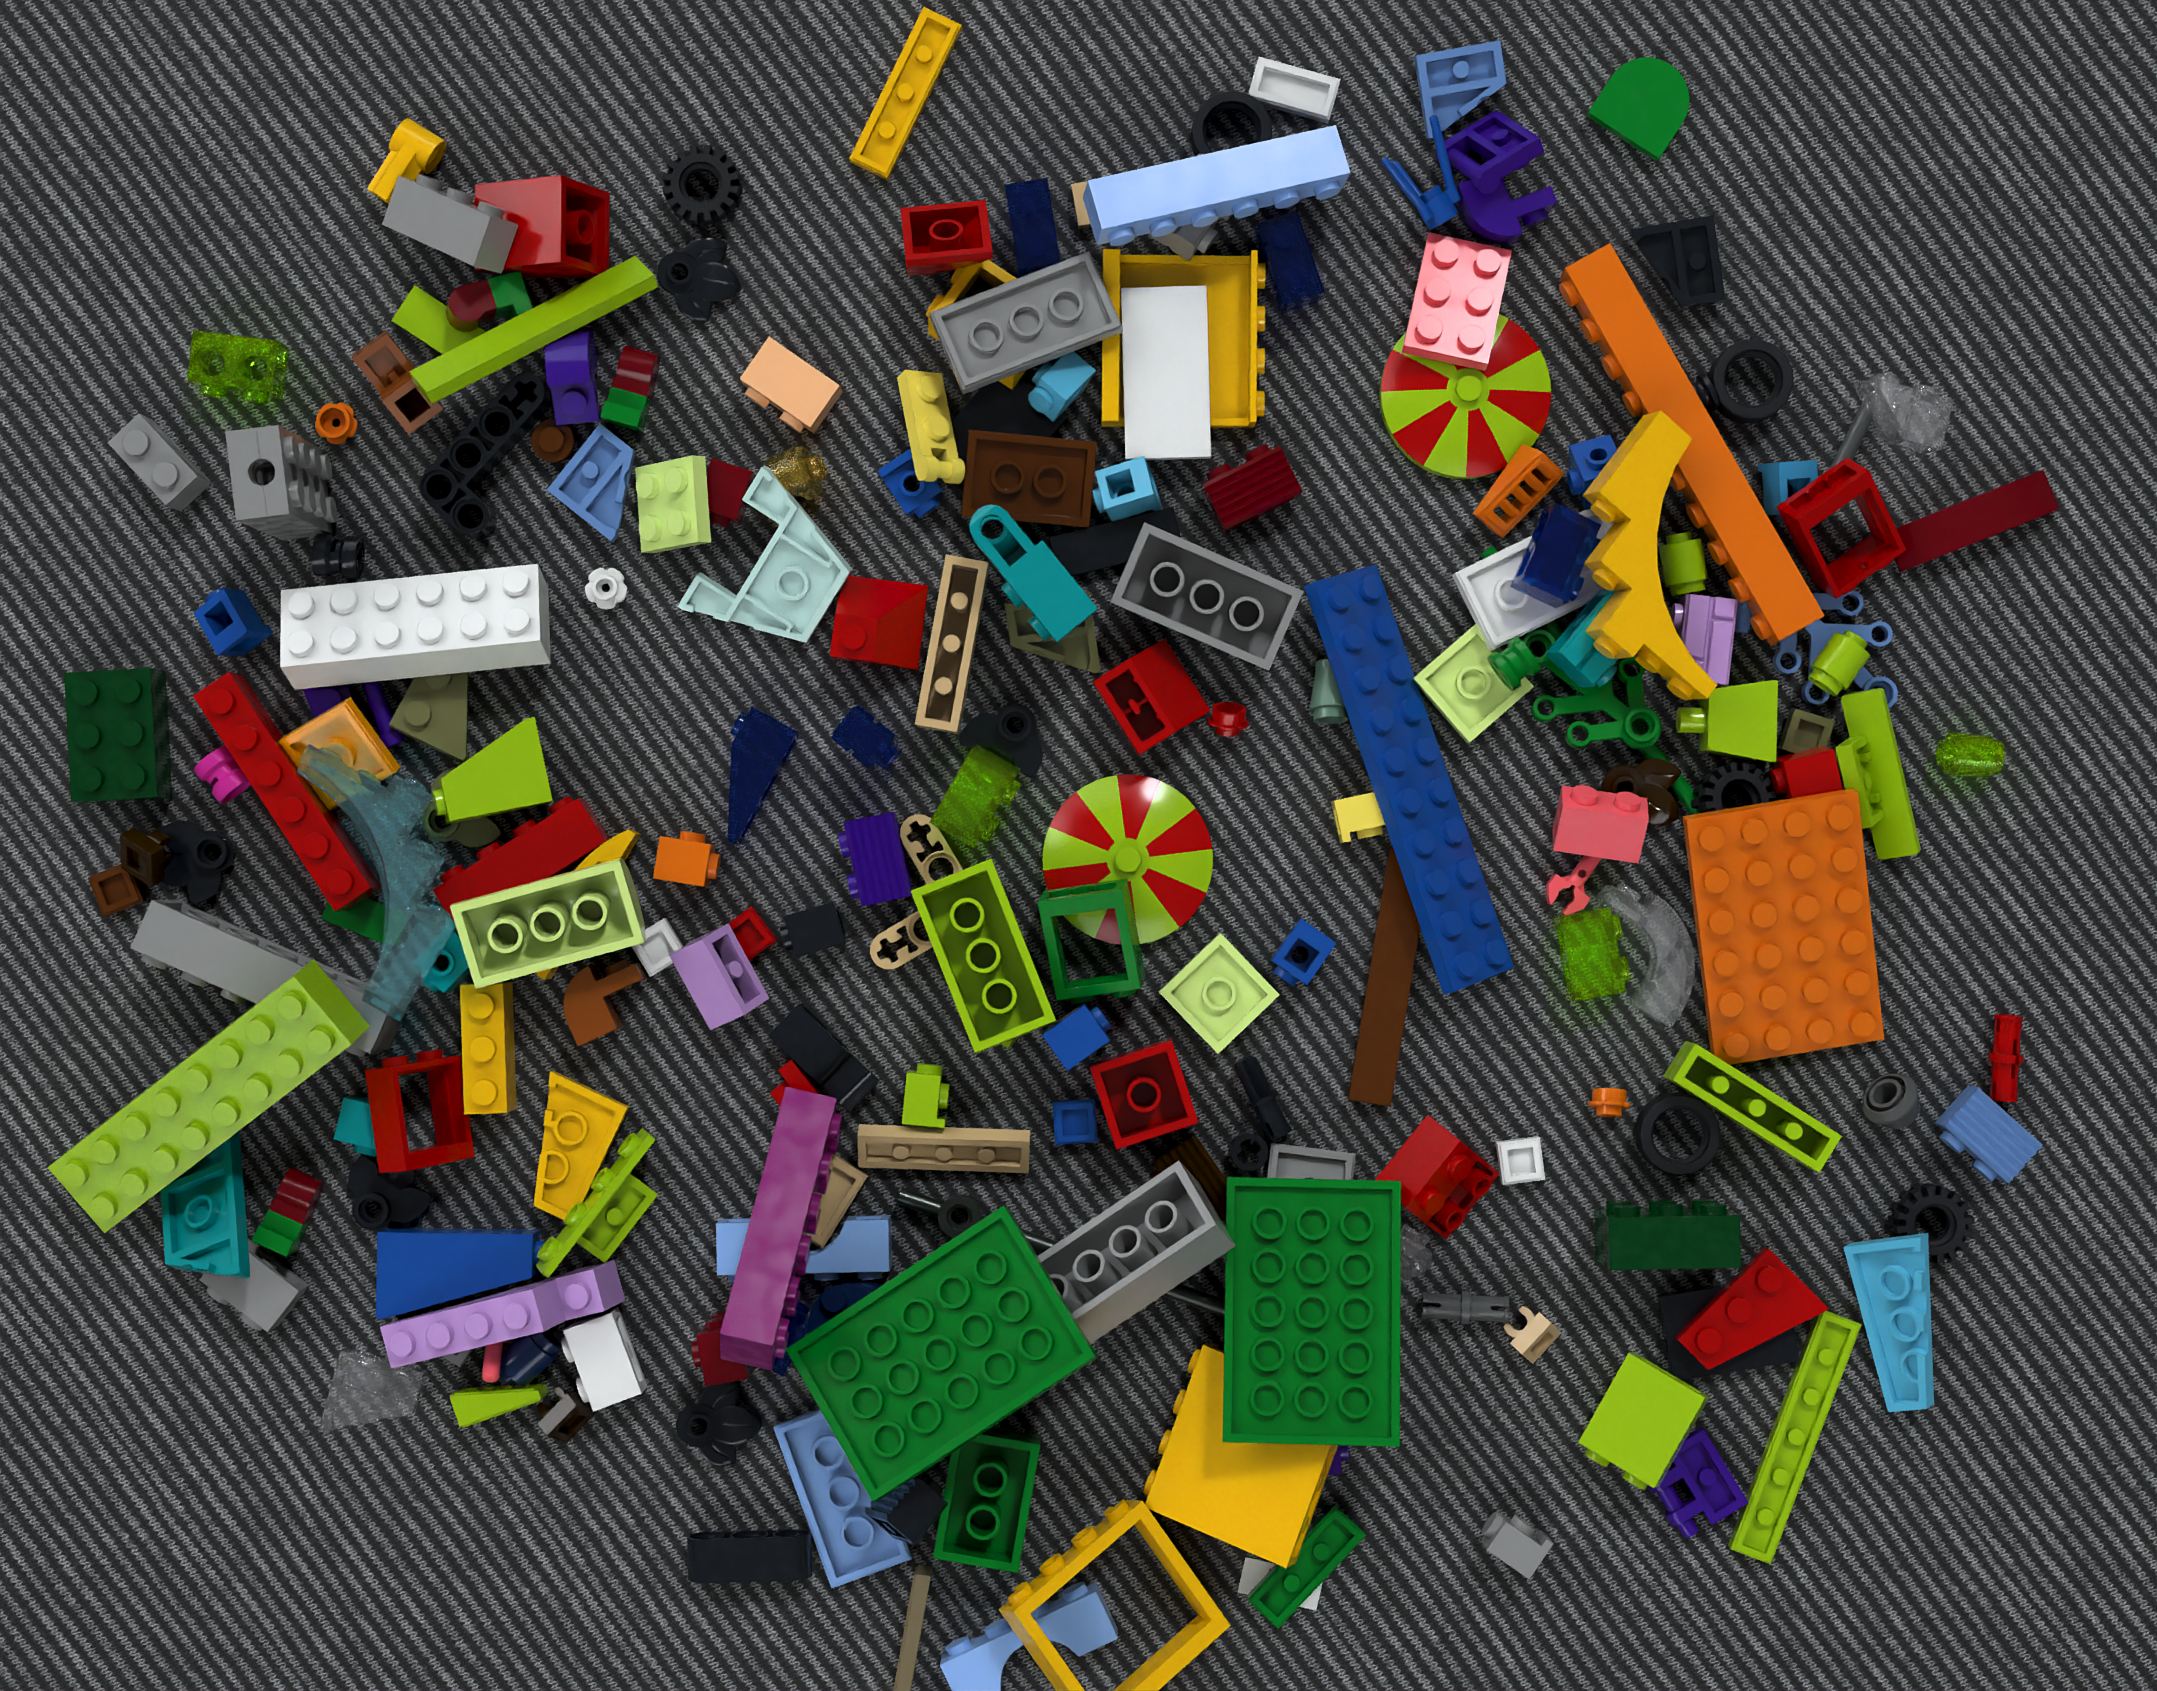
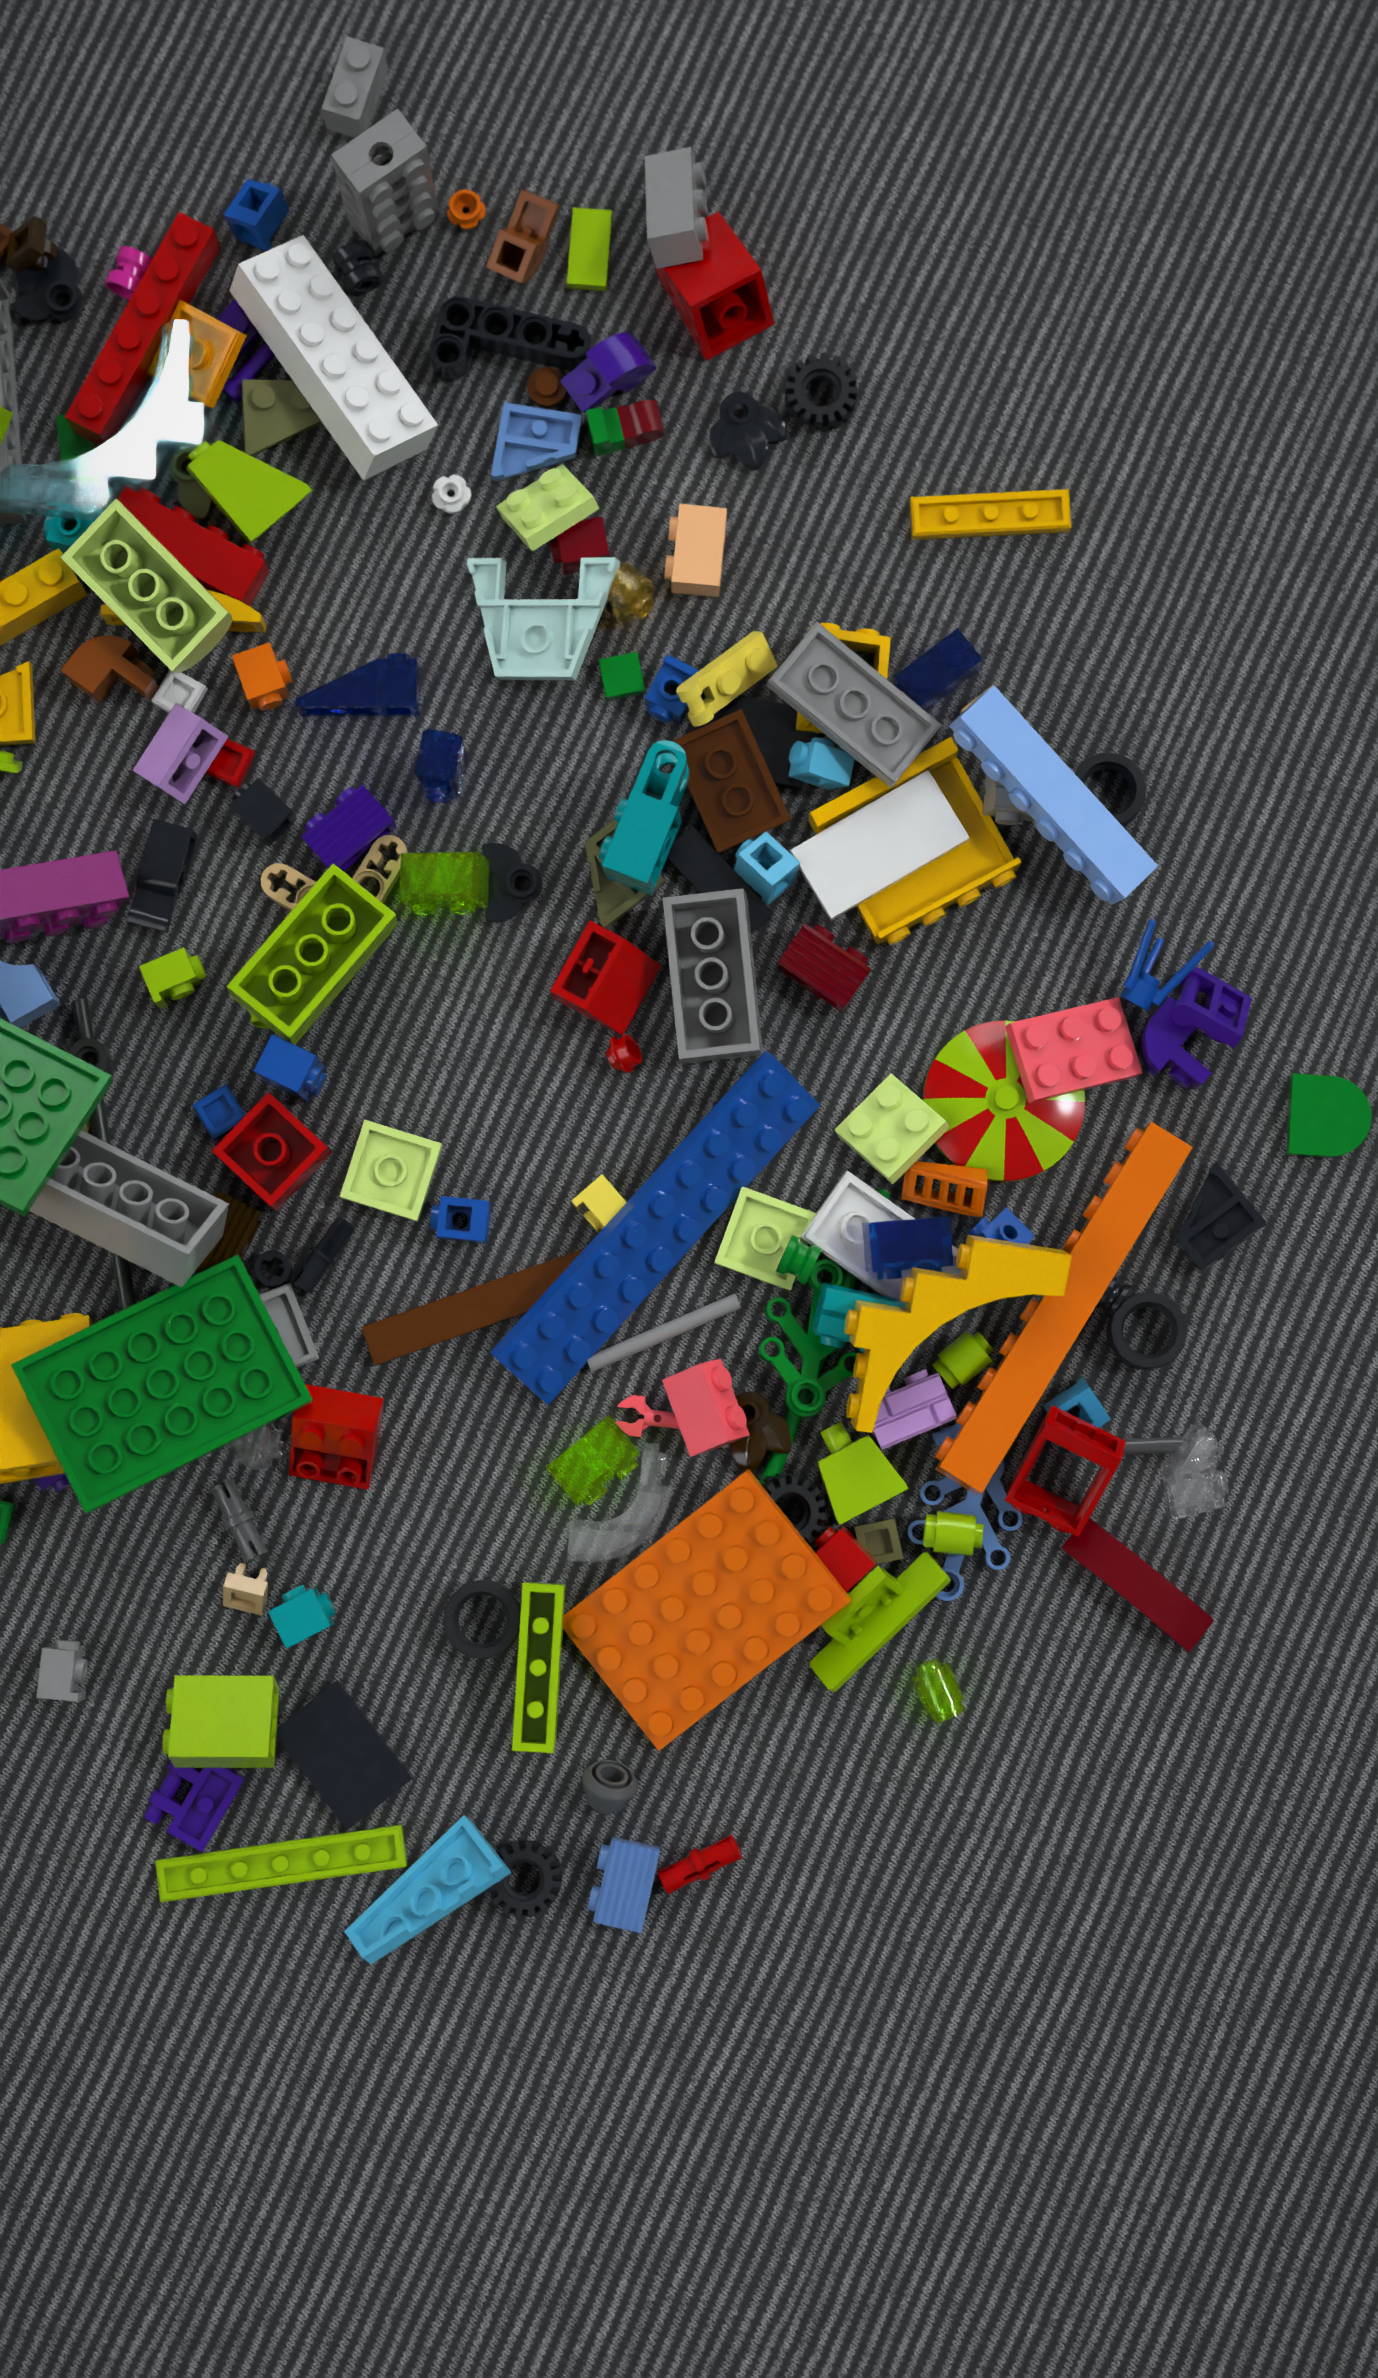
camera: 60 degrees right, 5 degrees down
(118, 735) = (115, 174): dark green brick -> none
(239, 356) = (472, 106): clear neon green brick -> none
(411, 153) = (718, 149): yellow piece -> none
(487, 301) = (631, 272): leg -> none
(533, 329) = (626, 318): lime tile -> none
(795, 1078) = (130, 863): red tile -> none
(842, 1188) = (61, 950): tan tile -> none
(869, 524) = (621, 676): none -> green tile
(879, 622) = (544, 726): red slope -> none
(943, 1148) = (138, 1015): tan plate -> none
(945, 237) = (886, 602): red slope -> none
(952, 644) = (557, 793): tan brick -> none
(1086, 899) = (422, 1041): green window -> none
(1135, 833) = (461, 1036): dish -> none
(1289, 262) = (1027, 895): clear blue brick -> none
(1294, 89) = (1173, 824): white tile -> none
(1326, 698) = (682, 1123): sand green cone -> none
(1436, 510) = (892, 1128): none -> yellowish green plate
(1457, 81) = (1256, 952): medium blue wing -> none
(1505, 823) = (663, 1332): none -> light grey bar
(1520, 1160) = (388, 1500): white tile -> none
(1584, 1296) = (302, 1615): none -> teal brick
(1609, 1102) = (477, 1546): orange plate -> none
(1667, 1235) = (389, 1653): dark green brick -> none
(1749, 1311) = (365, 1762): red wing -> none

